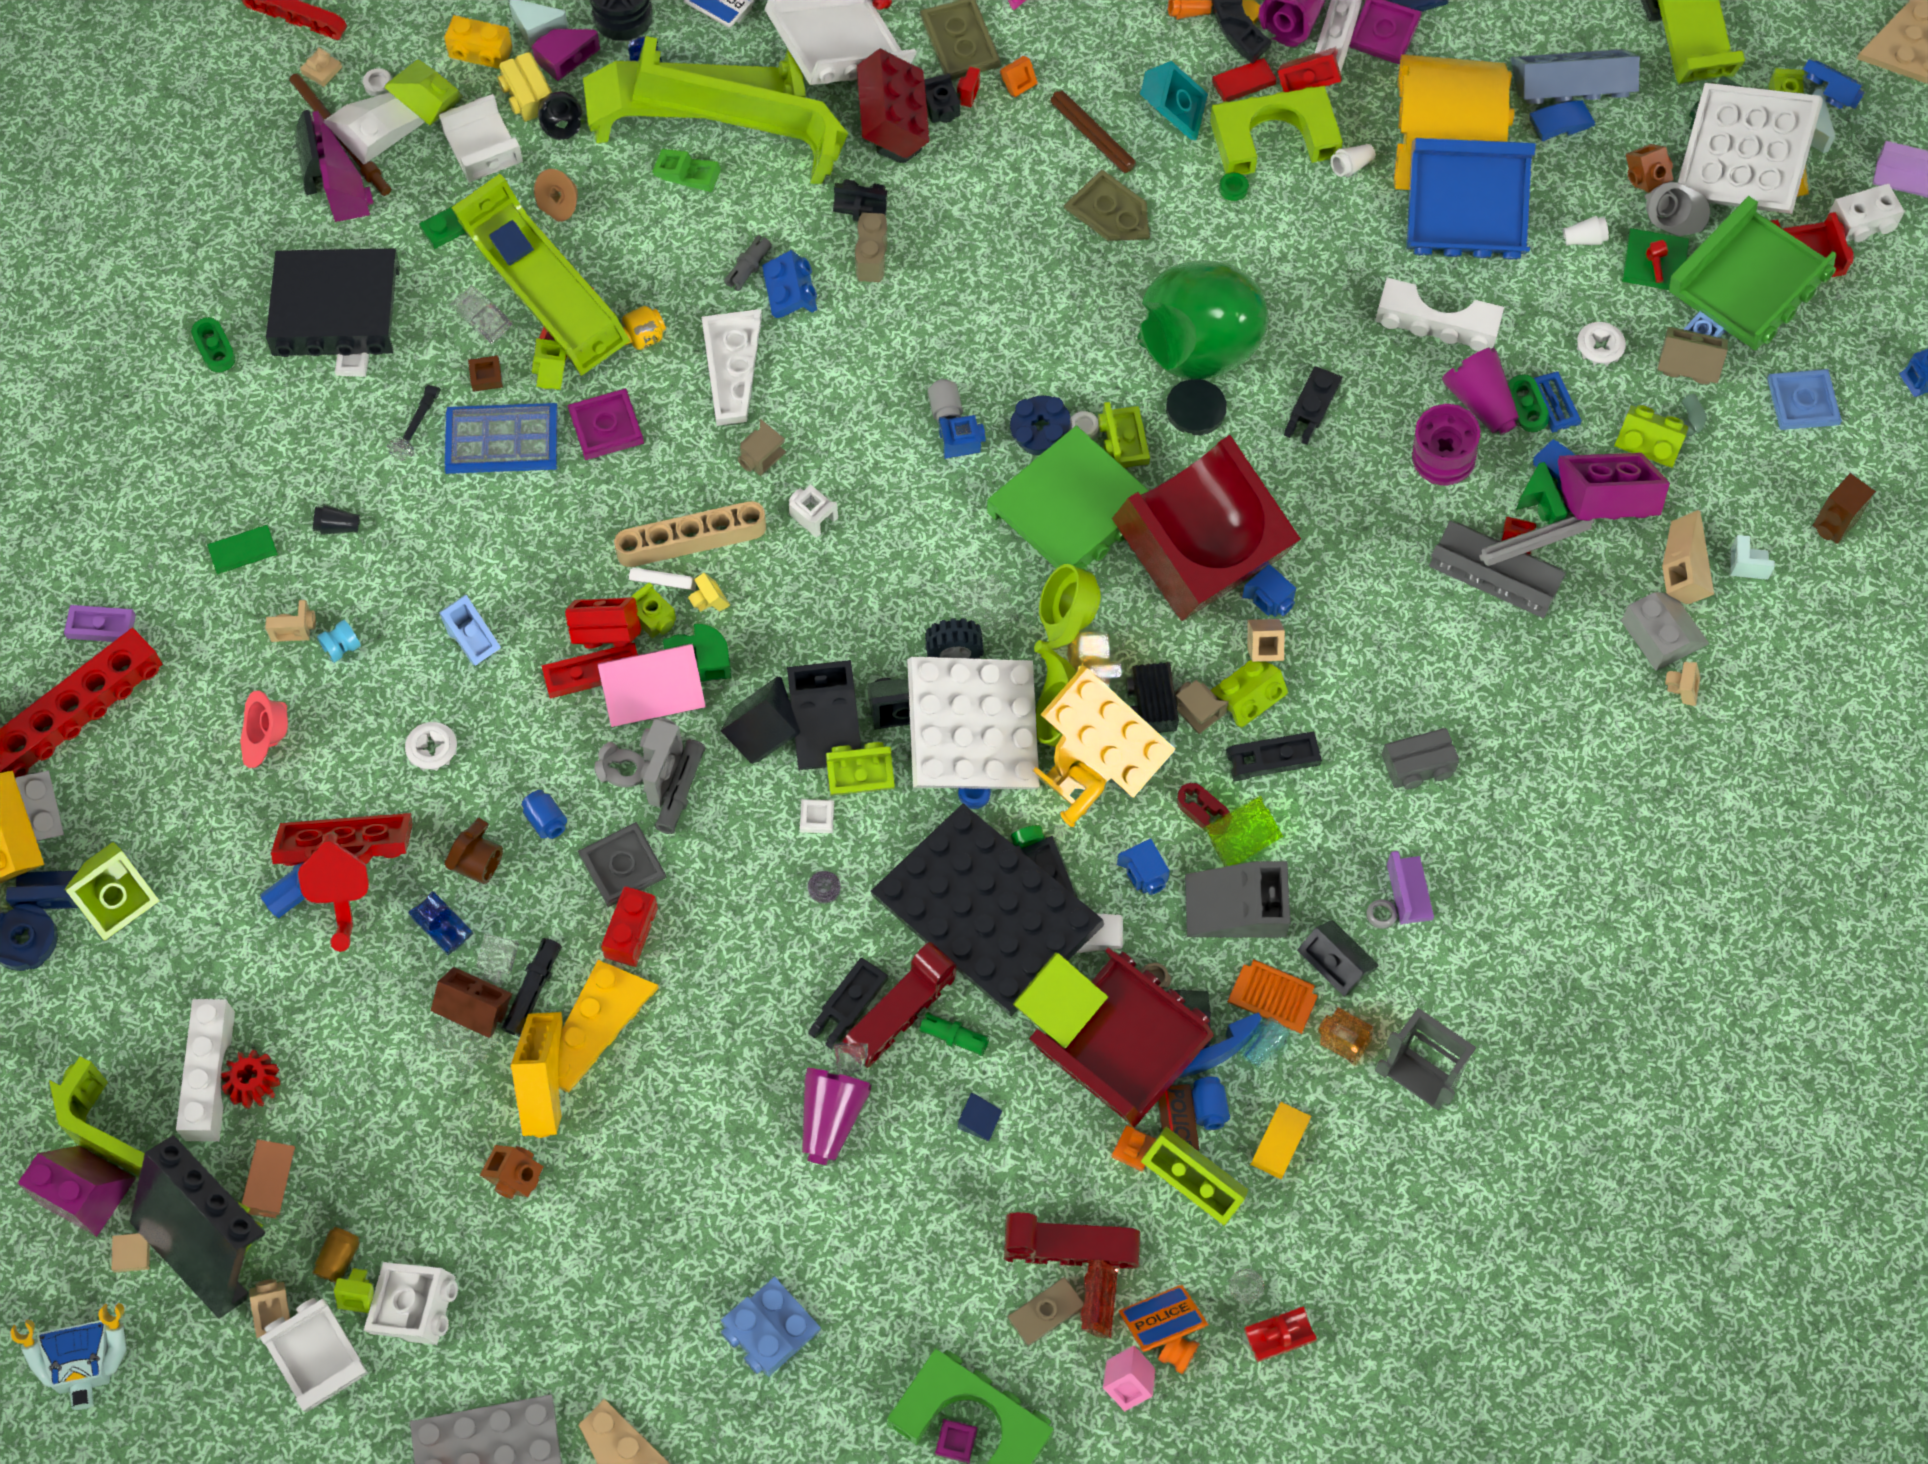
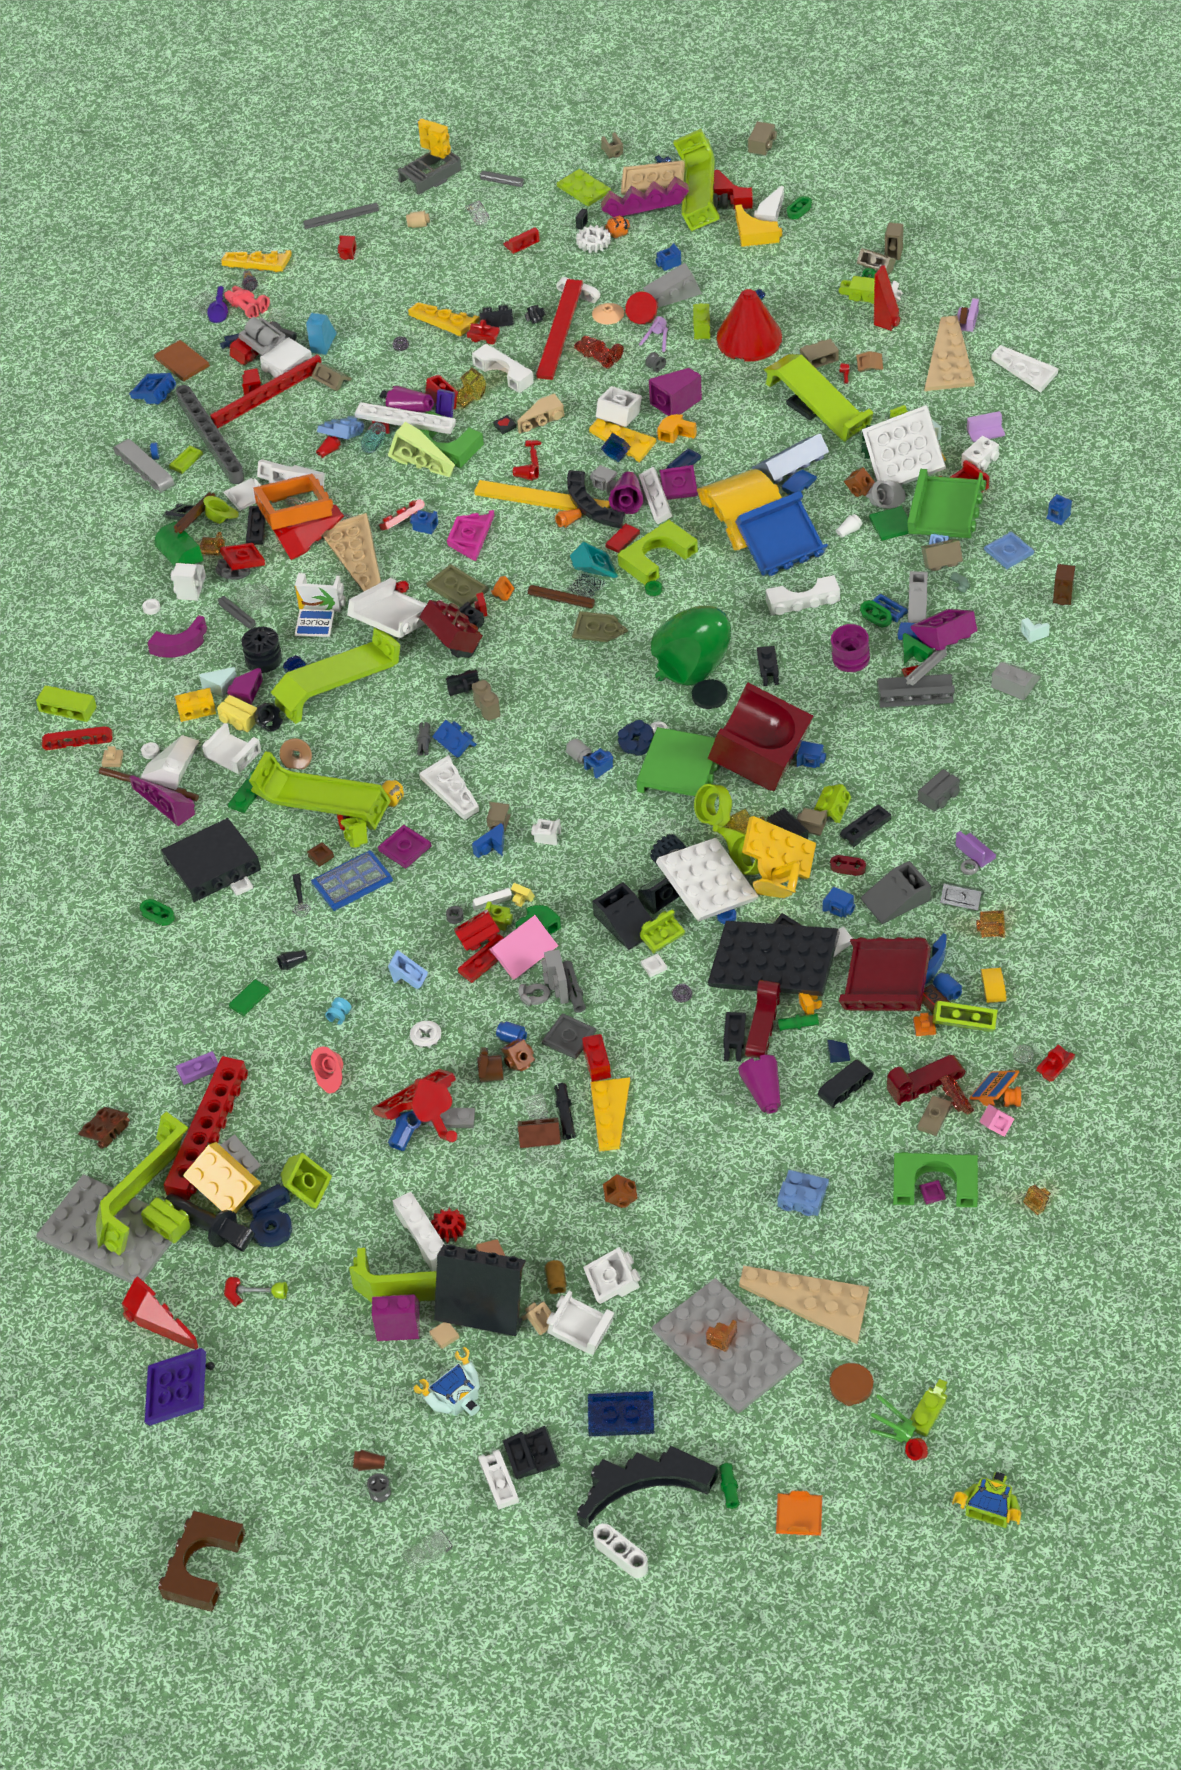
camera: 25 degrees left, 15 degrees down
(292, 628) = (307, 1017): tan bracket -> none
(307, 152) = (142, 796): black slope -> none
(354, 1292) = (580, 1287): lime tile -> none
(383, 908) = (457, 1118): none -> light grey hinge
(424, 91) = (186, 737): lime slope -> none
(440, 923) = (495, 1105): clear blue hips -> none
(481, 314) = (297, 827): clear slope -> none
(510, 242) = (289, 786): dark blue slope -> none
(524, 858) = (518, 1055): none -> dark orange brick
(536, 1074) = (604, 1142): yellow arch -> none
(606, 568) = (454, 919): none -> dark grey bush
(679, 168) = (351, 713): bright green slope -> none
(701, 523) = (490, 872): tan beam -> none
(733, 481) = (492, 839): none -> blue slope
(740, 106) = (371, 662): lime panel -> none
(762, 722) = (596, 934): black slope -> none
(850, 1057) = (754, 1053): clear tile -> none
(951, 1179) = (844, 1083): none -> black beam
(987, 1013) = (808, 1004): none -> light orange tile
(1027, 836) = (770, 917): green tile -> none
(1060, 1000) = (842, 973): lime tile -> none
(1124, 435) = (683, 721): lime bracket -> none
(1140, 132) = (586, 585): none -> clear piece
(1243, 832) = (876, 863): clear neon green plate -> none
(1266, 640) = (824, 775): tan brick -> none
(1266, 1041) = (955, 946): clear light blue cone -> none
(1274, 995) = (952, 925): orange window -> none
(1310, 71) = (657, 515): red panel -> none
(1350, 160) = (705, 548): white cone -> none
(1416, 1072) = (1039, 924): dark grey piece -> none
(1484, 390) = (849, 612): magenta cone -> none
(1601, 332) = (887, 567): white gear -> none
(1606, 410) = (917, 596): none -> light grey slope
(1652, 435) = (947, 598): lime bracket -> none
(1656, 251) = (890, 519): red hand -> none
(1685, 683) = (1042, 697): tan tile -> none
(1687, 561) = (1005, 643): tan slope -> none
(1841, 88) = (933, 402): blue plate -> none

